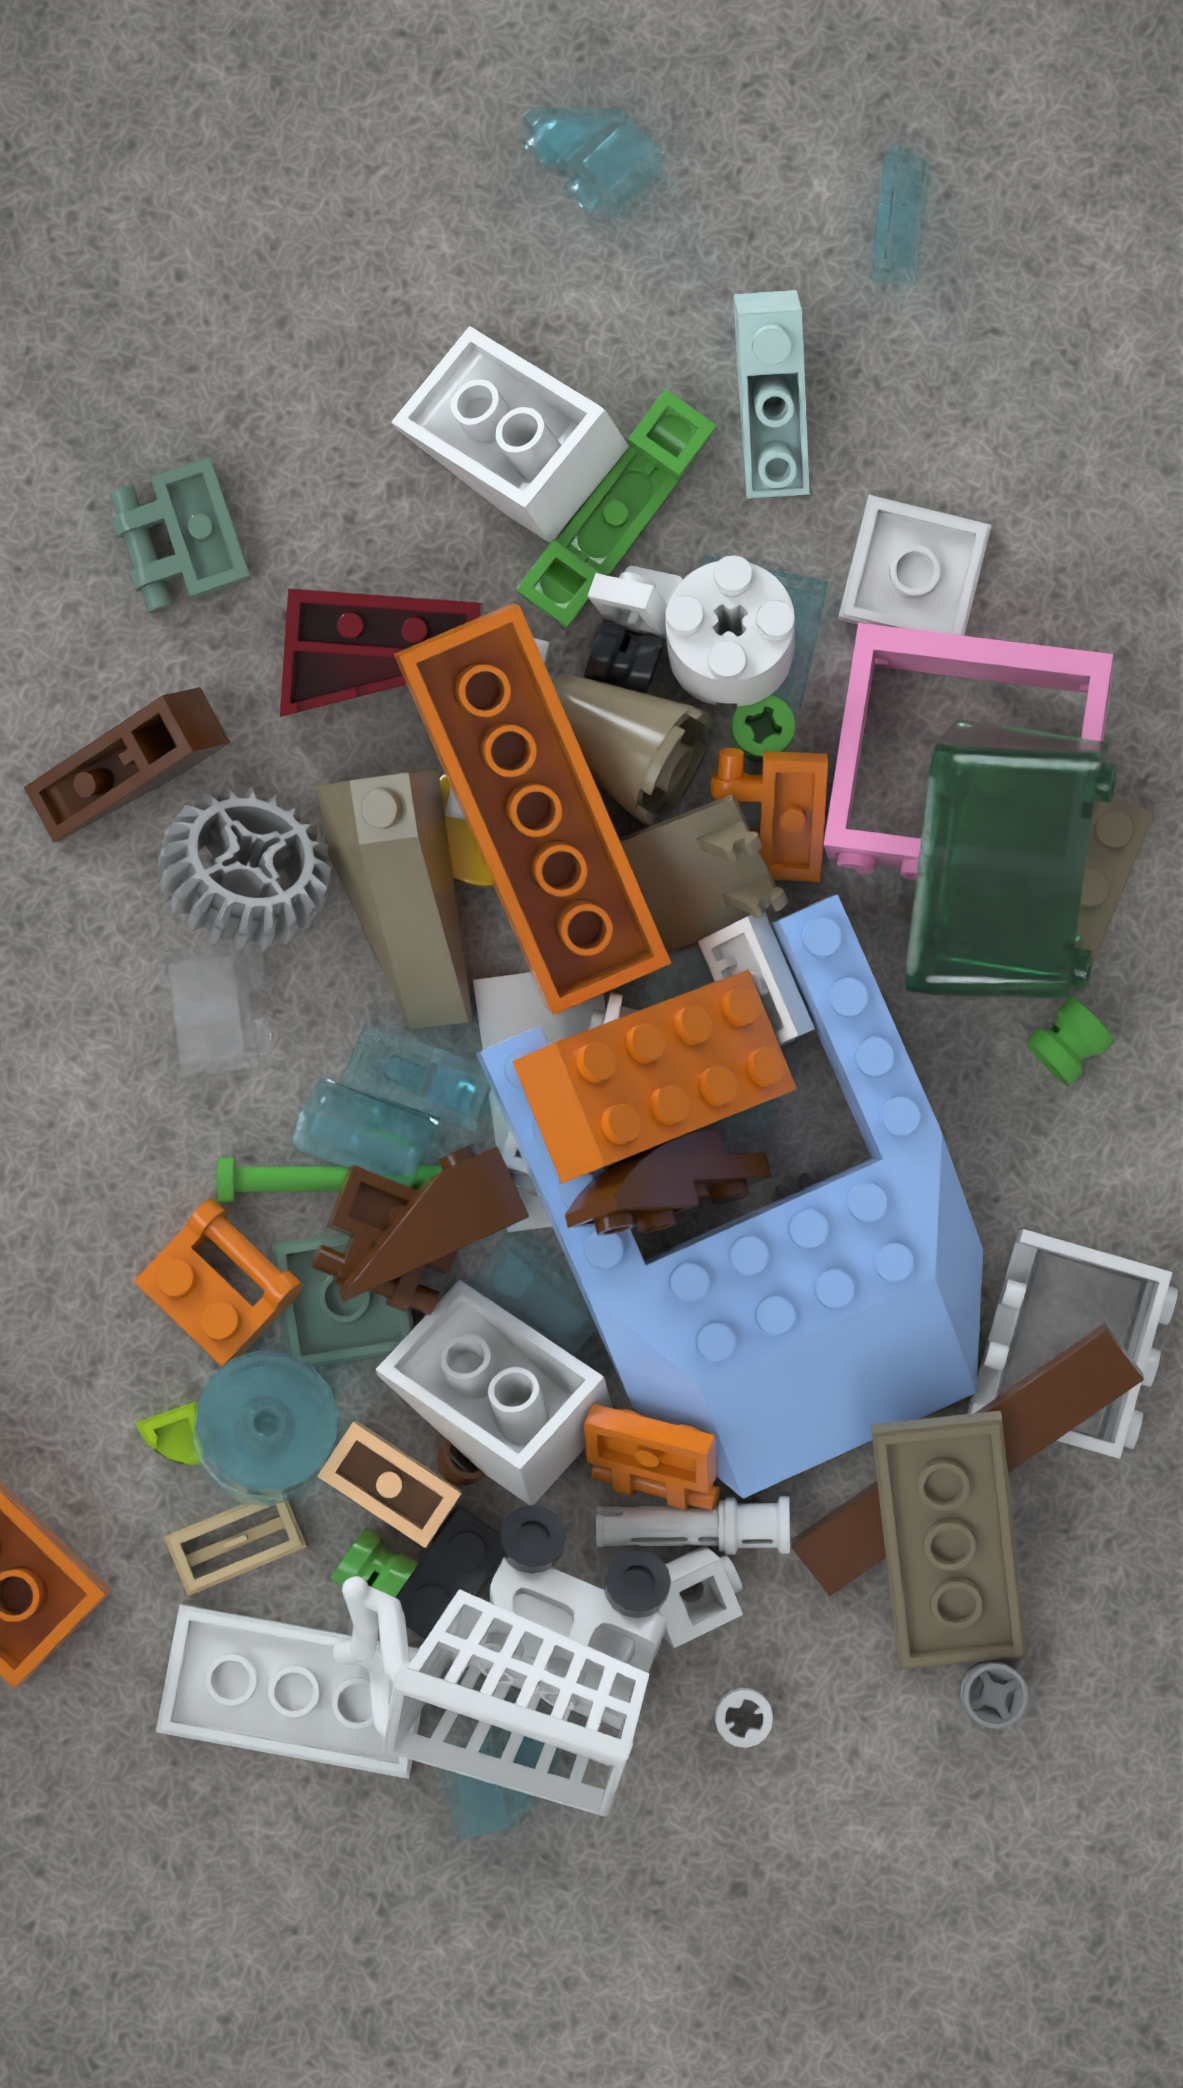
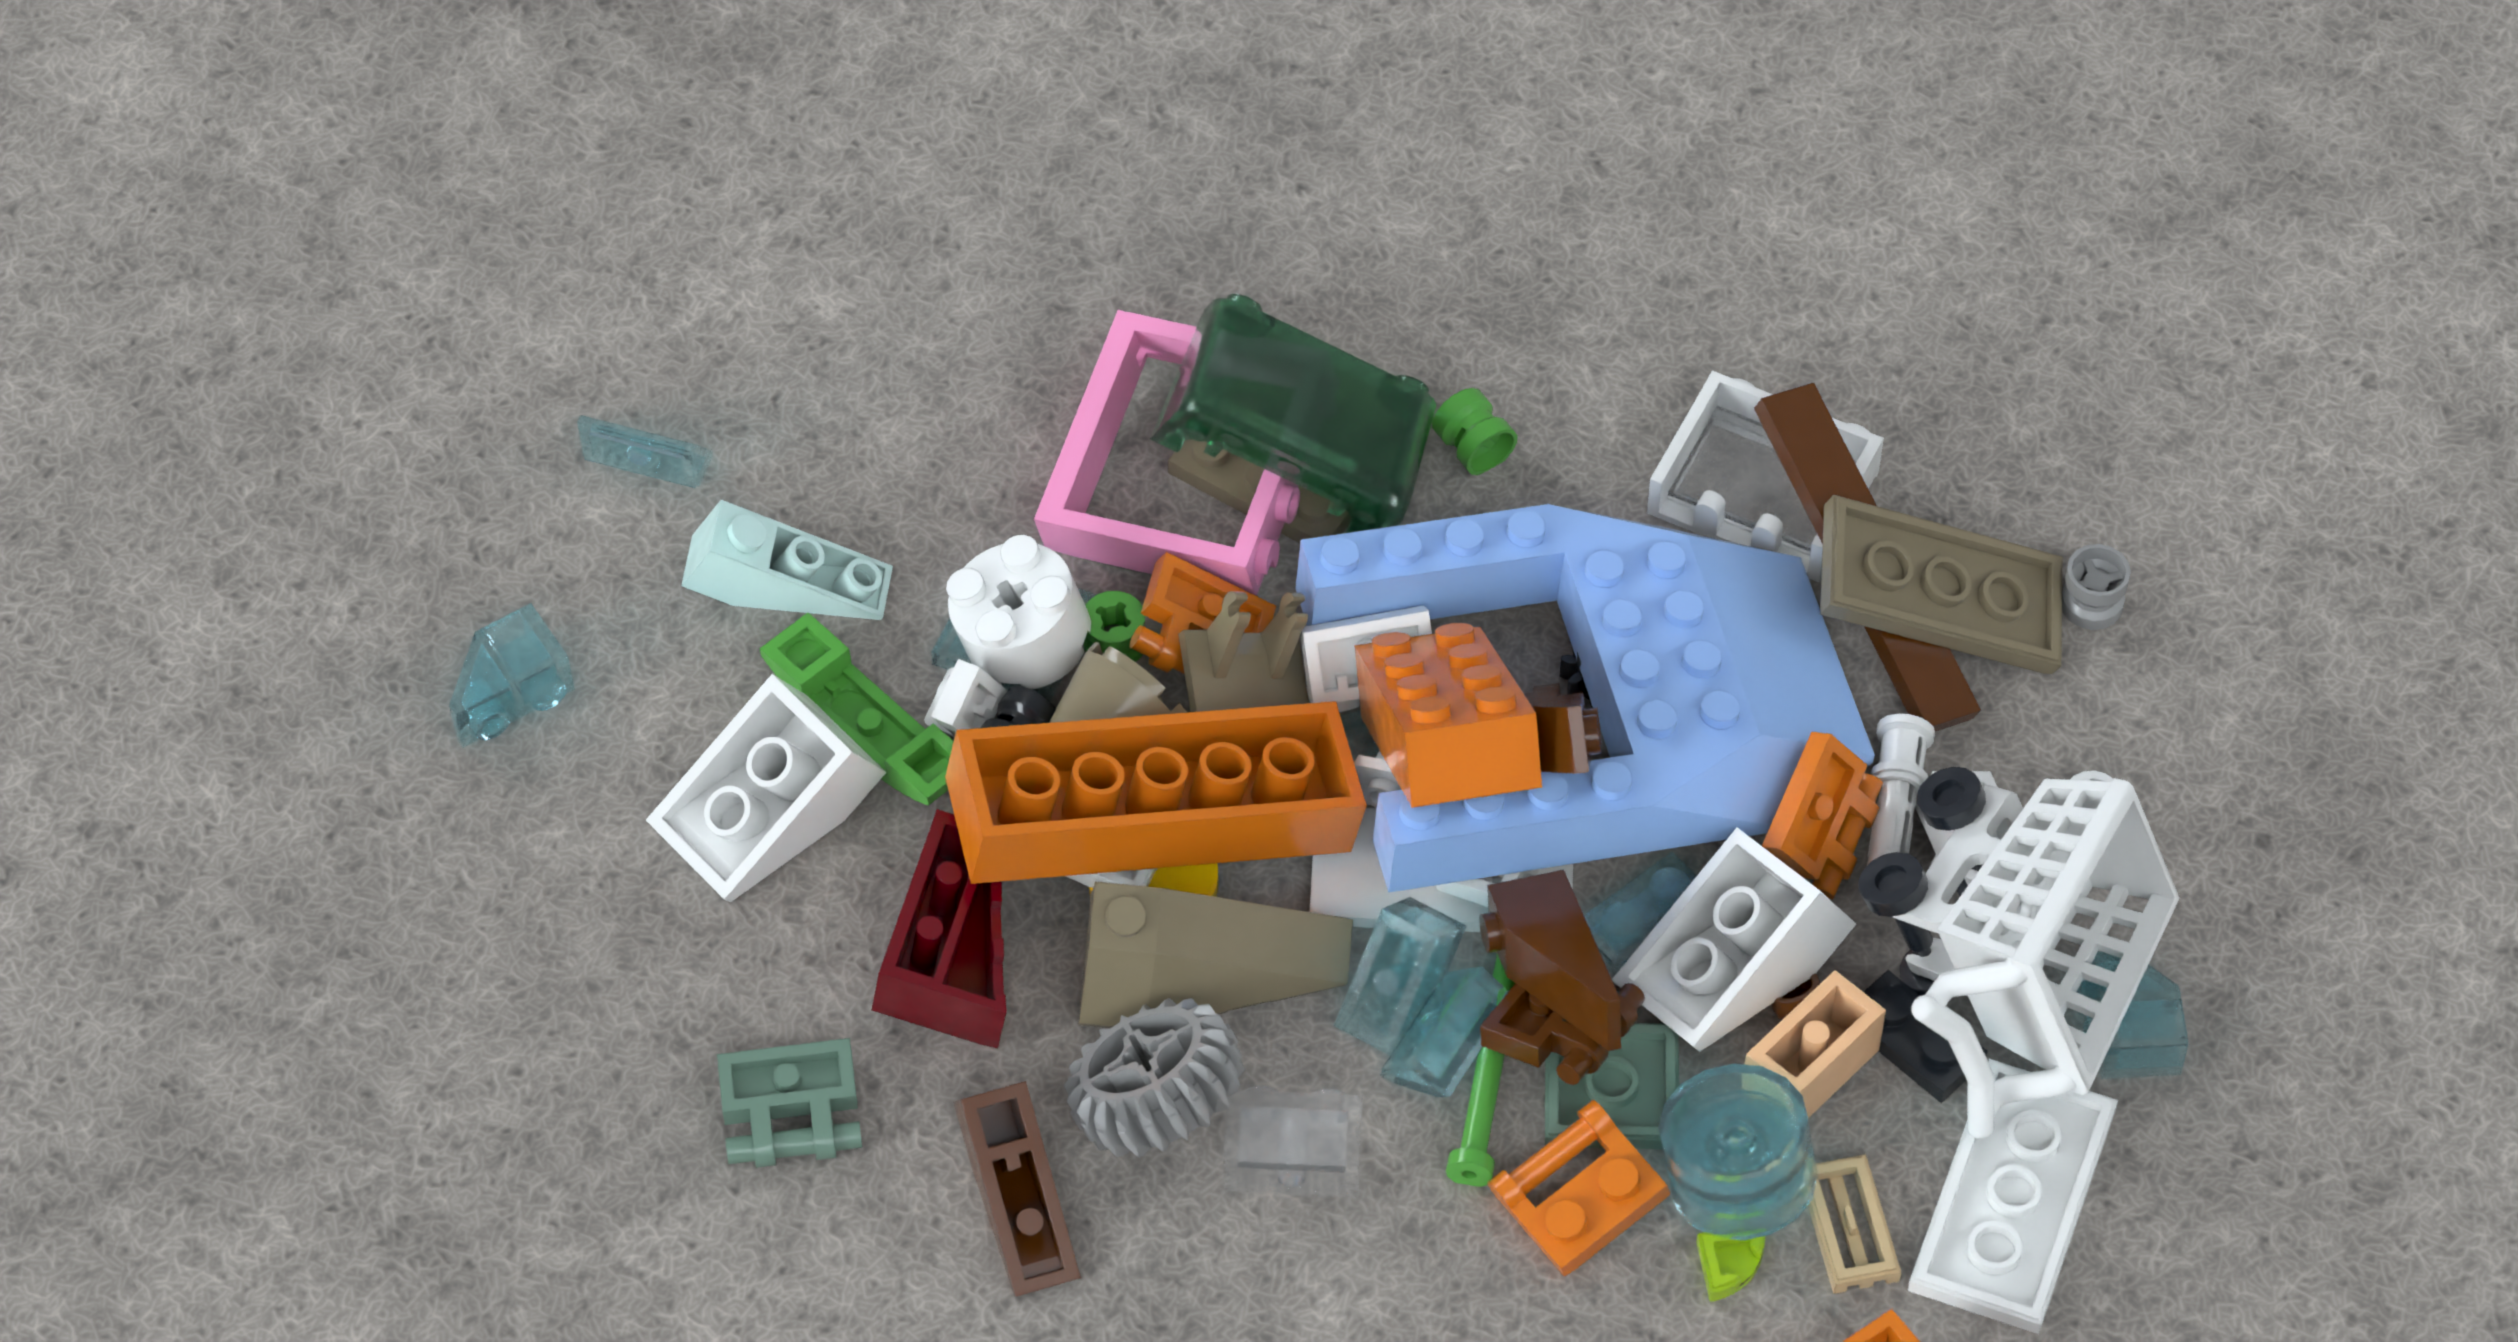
camera: 80 degrees left, 30 degrees down
(370, 1556) = (1900, 1091): bright green wheel -> none
(914, 568) = (983, 488): white tile -> none

